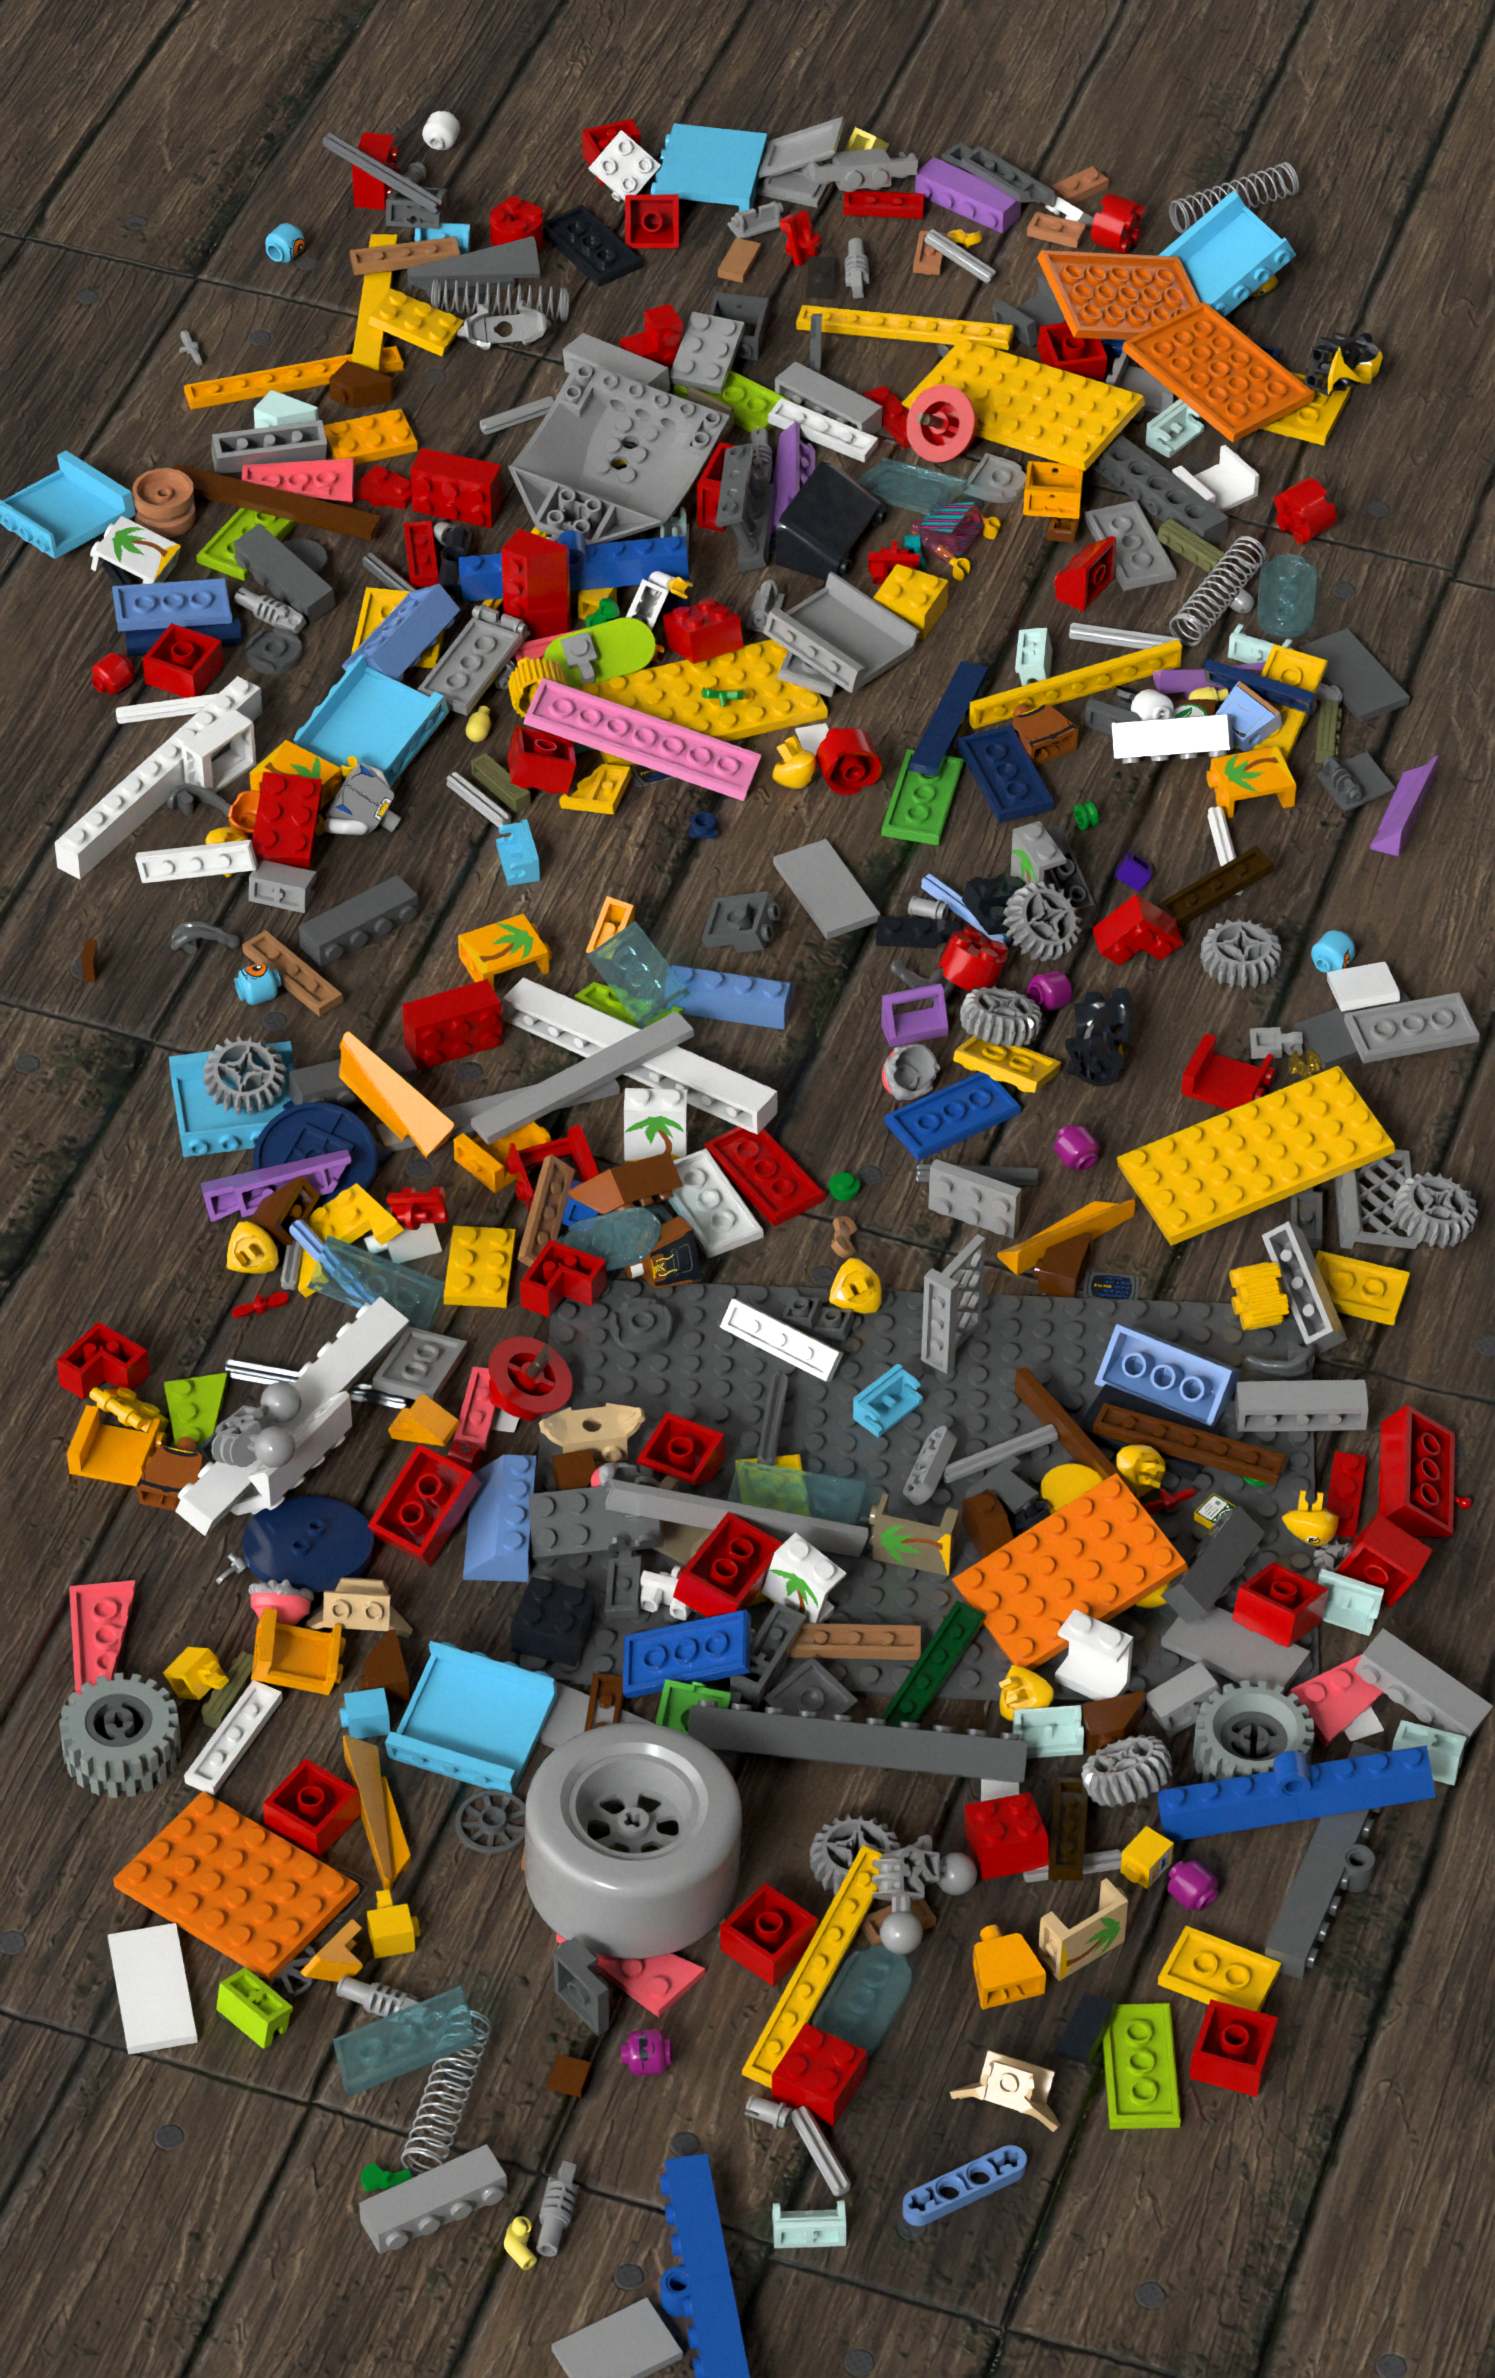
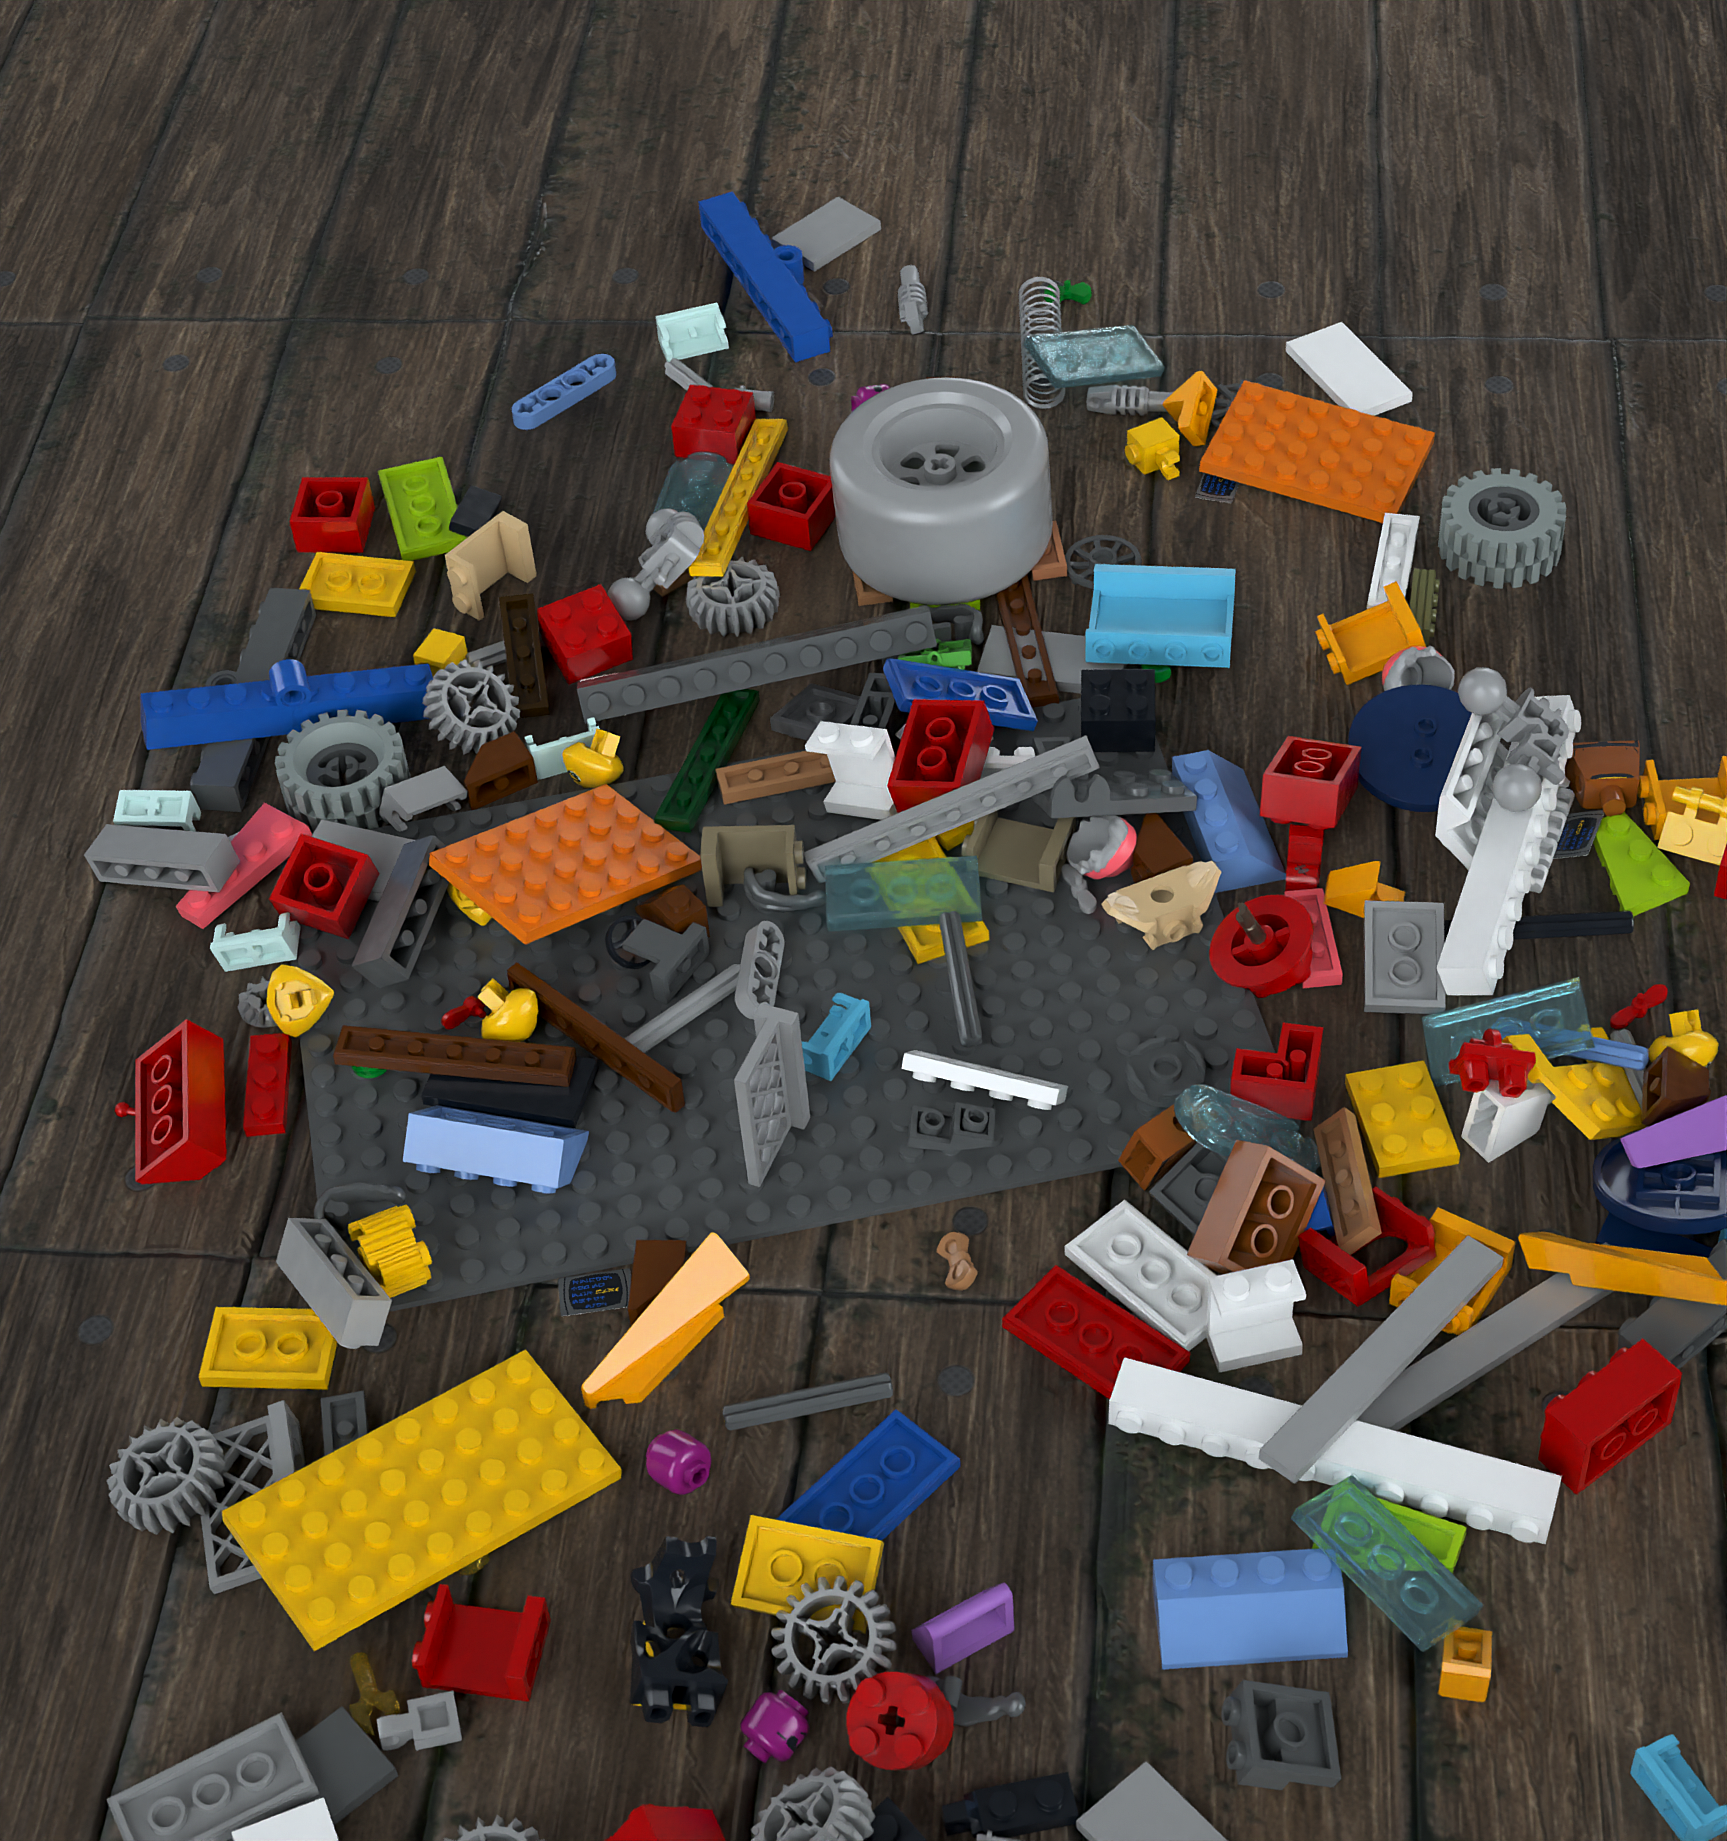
camera: 170 degrees right, 0 degrees up
(98, 1628) = (1589, 625): coral wing -> none
(195, 1673) = (1462, 594): yellow brick -> none
(253, 2007) = (1246, 360): lime hinge -> none
(311, 1808) = (1277, 508): red brick -> none
(361, 1606) = (1299, 697): tan piece -> none
(365, 1713) = (1272, 609): medium azure brick -> none
(377, 1810) = (1219, 532): light orange wedge -> none
(386, 1670) = (1270, 647): reddish brown slope -> none
(433, 2199) = (996, 292): light grey brick -> none
(502, 948) = (1605, 1585): light orange panel -> none
(516, 2242) = (937, 276): light yellow arm -> none
(684, 1450) = (1046, 898): red slope -> none
(844, 1186) = (981, 1338): green plate -> none
(856, 1287) = (912, 1155): yellow piece -> none
(909, 1071) = (943, 1515): light grey hair -> none
(974, 1198) = (795, 1321): light grey plate -> none
(1005, 1968) = (563, 540): light orange torso -> none
(1015, 2086) = (564, 445): tan piece -> none
(1067, 1483) = (589, 979): yellow tile -> none
(1096, 1659) = (516, 771): white panel -> none
(1193, 1885) = (390, 641): magenta head -> none
(1211, 1510) = (414, 1004): tile -> none
(1301, 1405) = (323, 1144): light grey brick -> none
(1385, 1558) = (209, 964): red brick -> none

